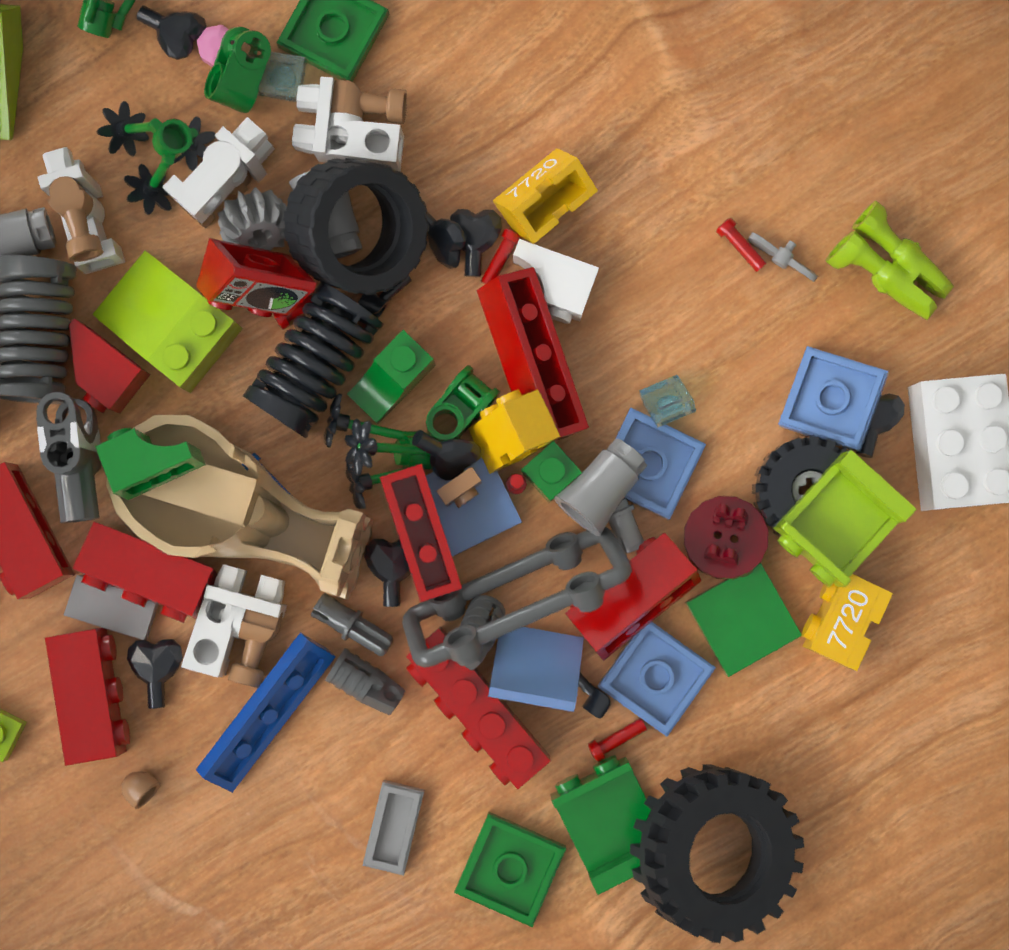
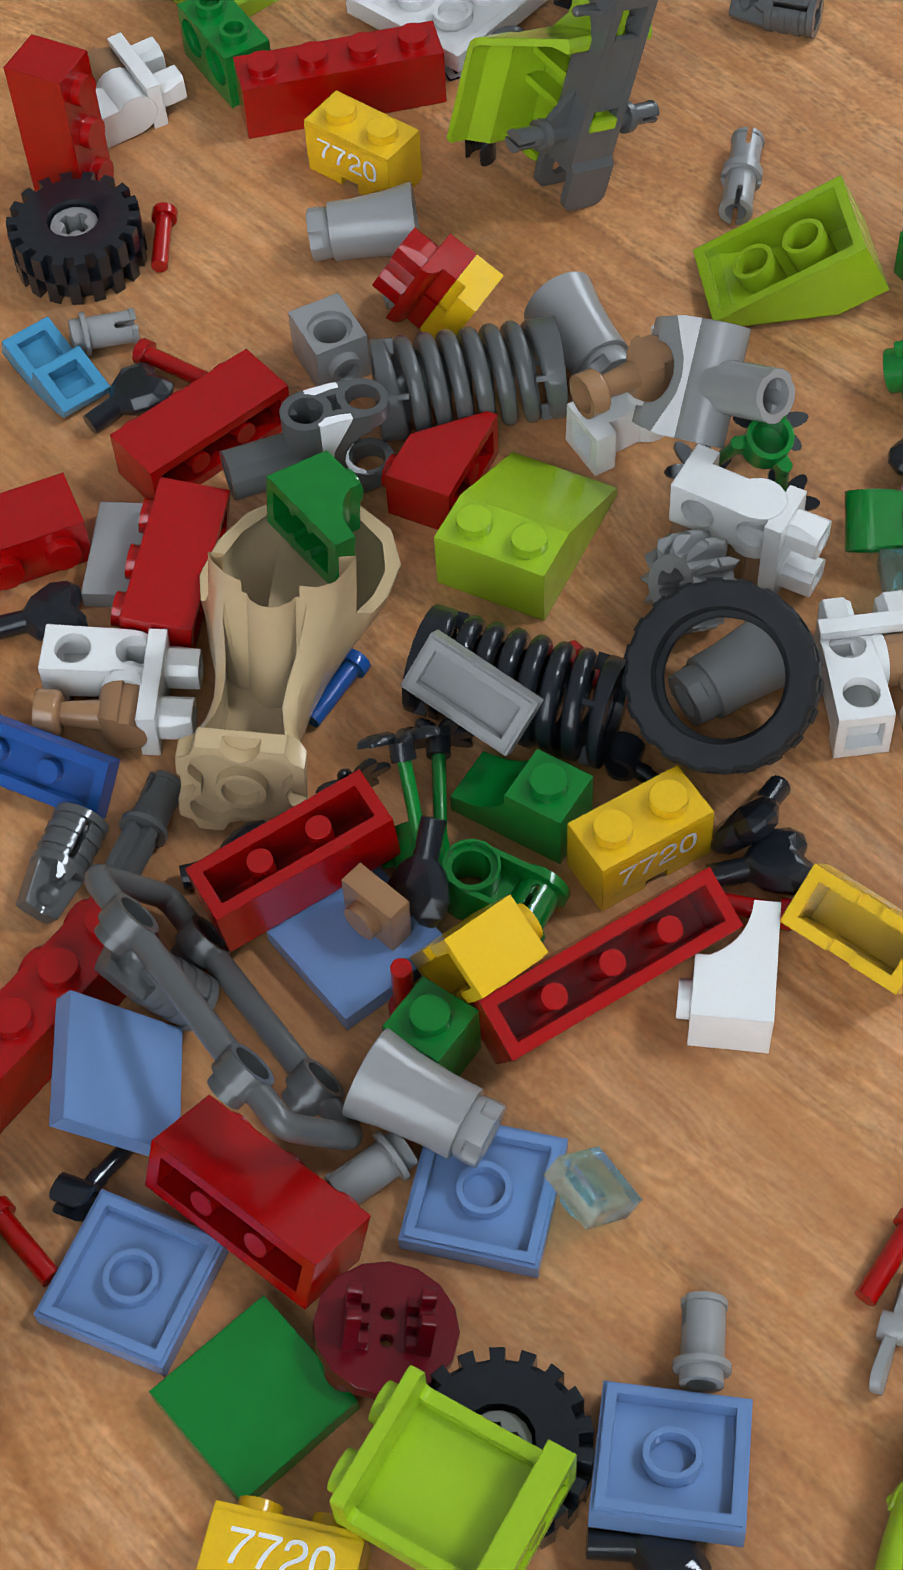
camera: 80 degrees right, 30 degrees down
(117, 163) = (712, 383): none -> light grey connector
(252, 279) = (606, 575): red slope -> none
(327, 391) = (471, 692): none -> light grey tile
(443, 311) = (639, 836): none -> yellow brick
(770, 364) = (702, 1347): none -> light grey pin

